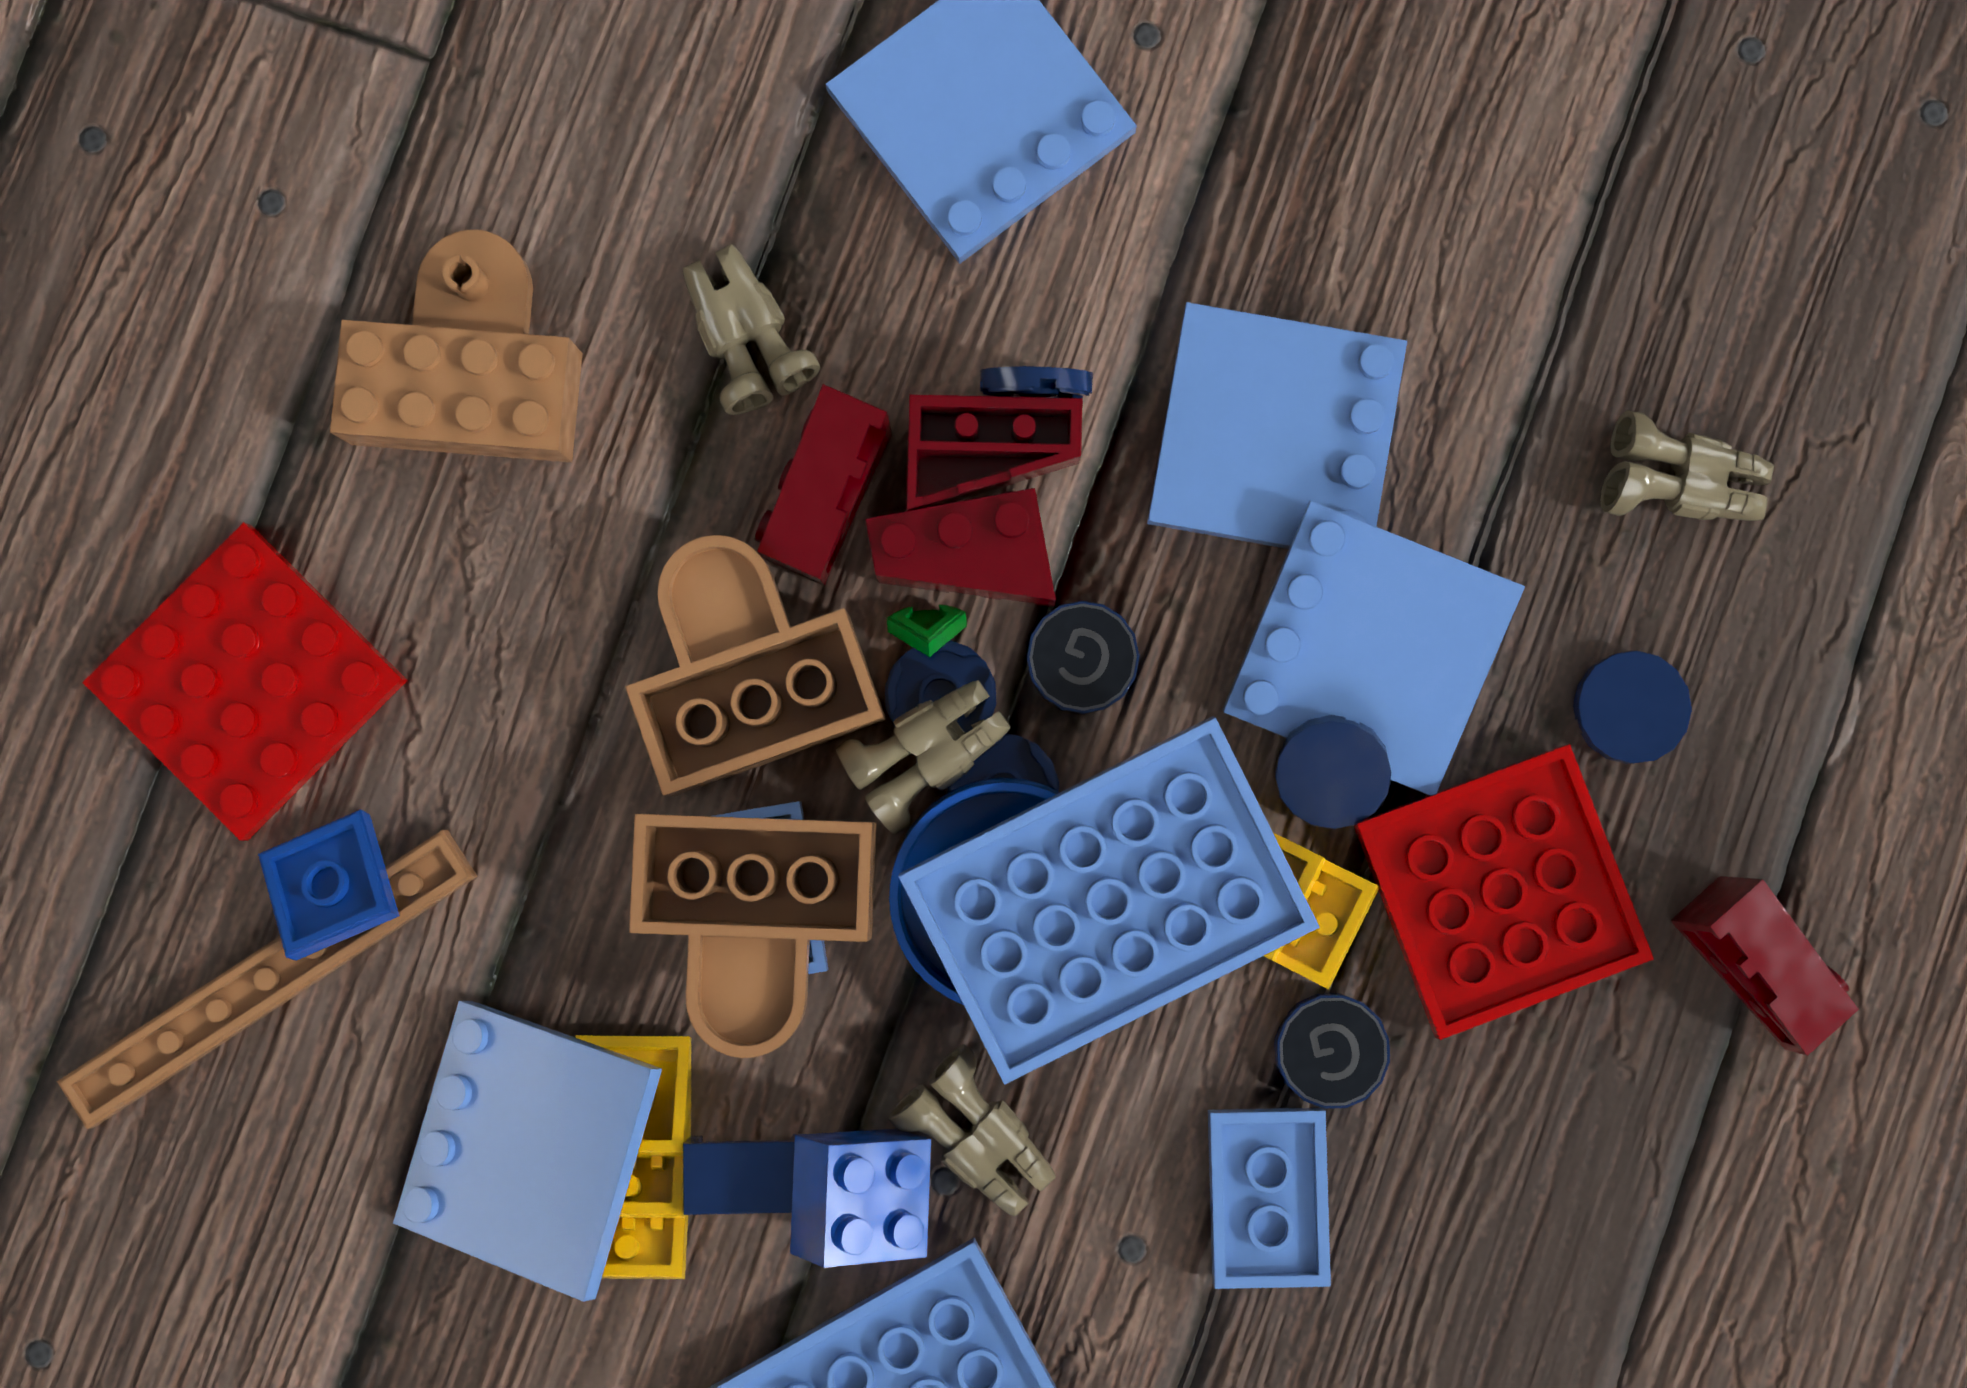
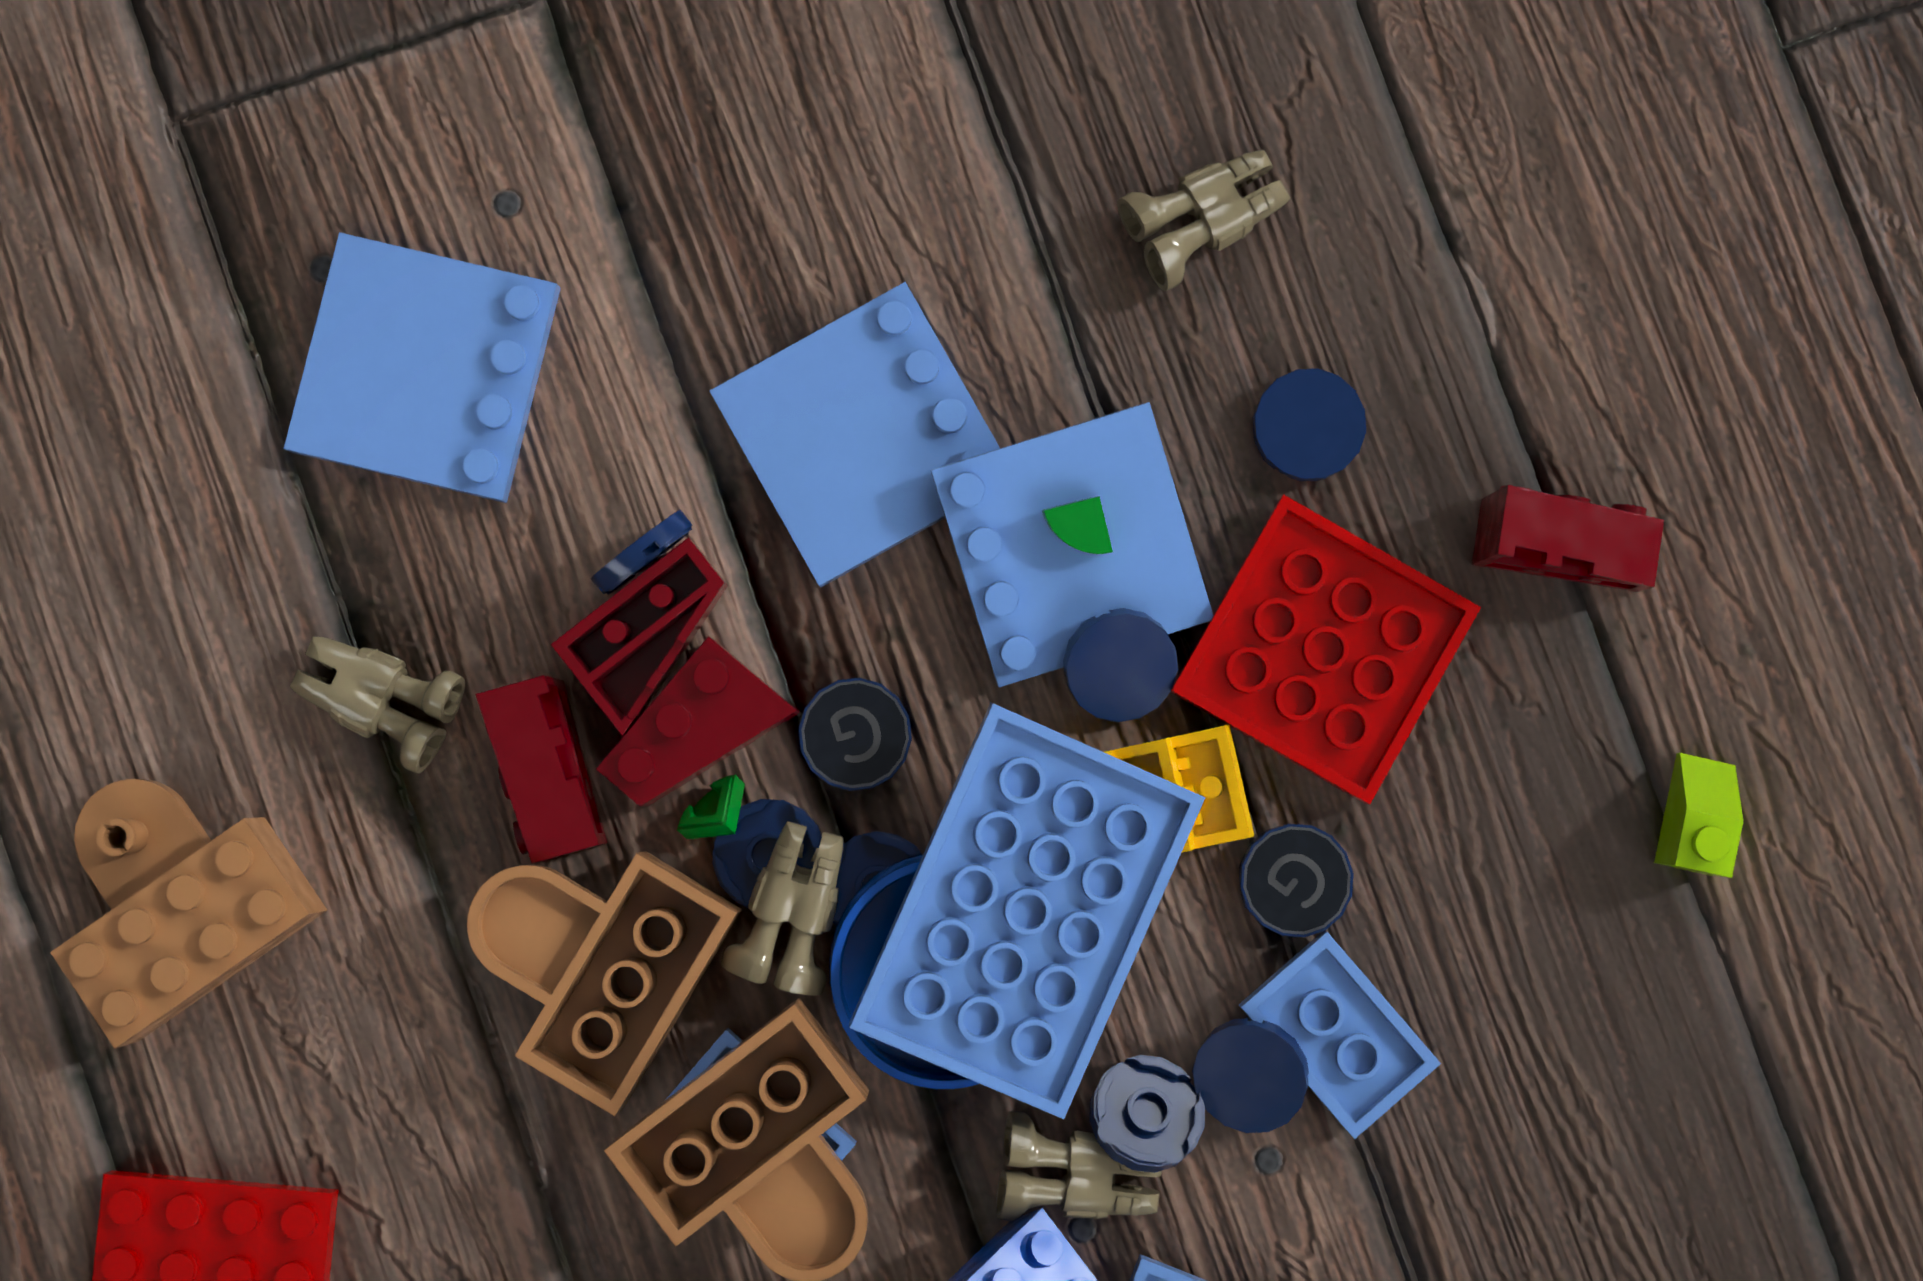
camera: 45 degrees left, 0 degrees up
(1069, 1134) = (1147, 1113): none -> tile
(1174, 1172) = (1251, 1075): none -> dark blue tile
(1392, 638) = (1080, 525): none -> green tile
(1692, 1267) = (1701, 817): none -> lime slope

